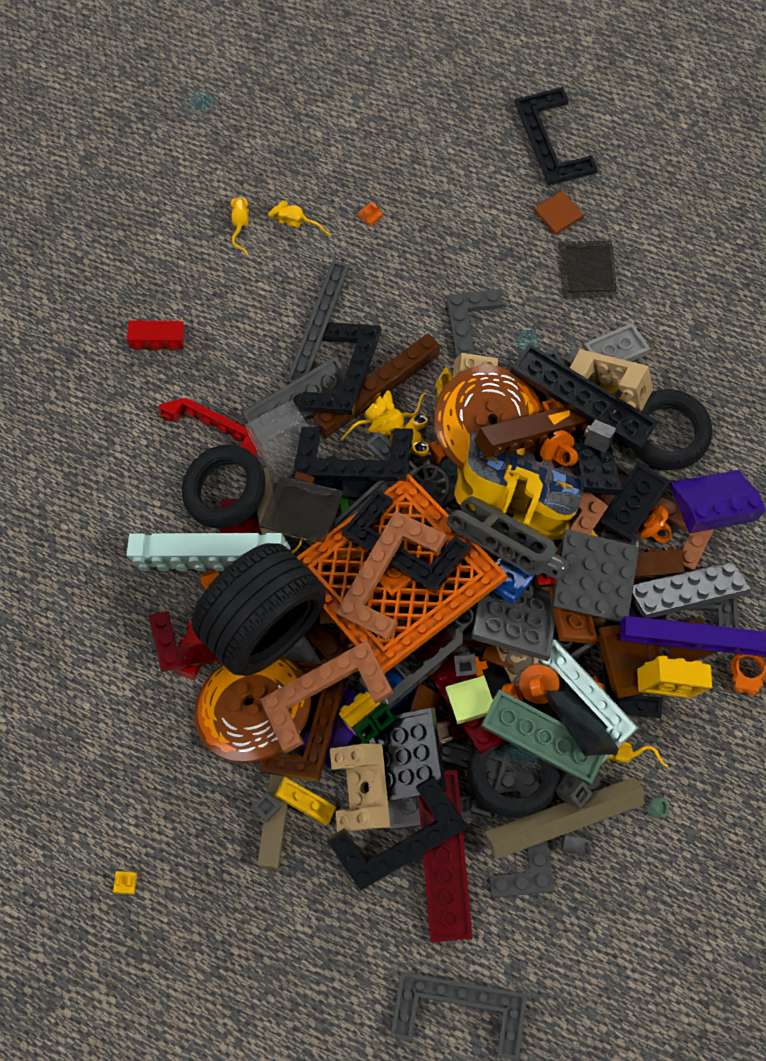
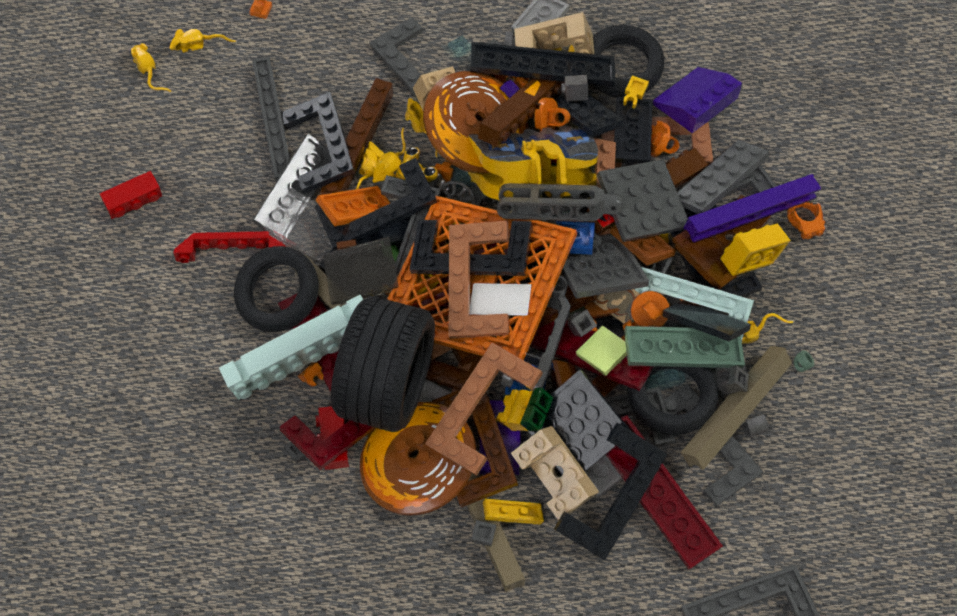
camera: 30 degrees left, 5 degrees down
(333, 442) = (351, 204): none -> orange tile
(401, 603) = (500, 299): none -> white sticker
(539, 405) = (509, 88): none -> dark purple tile
(658, 464) = (635, 89): none -> yellow plate

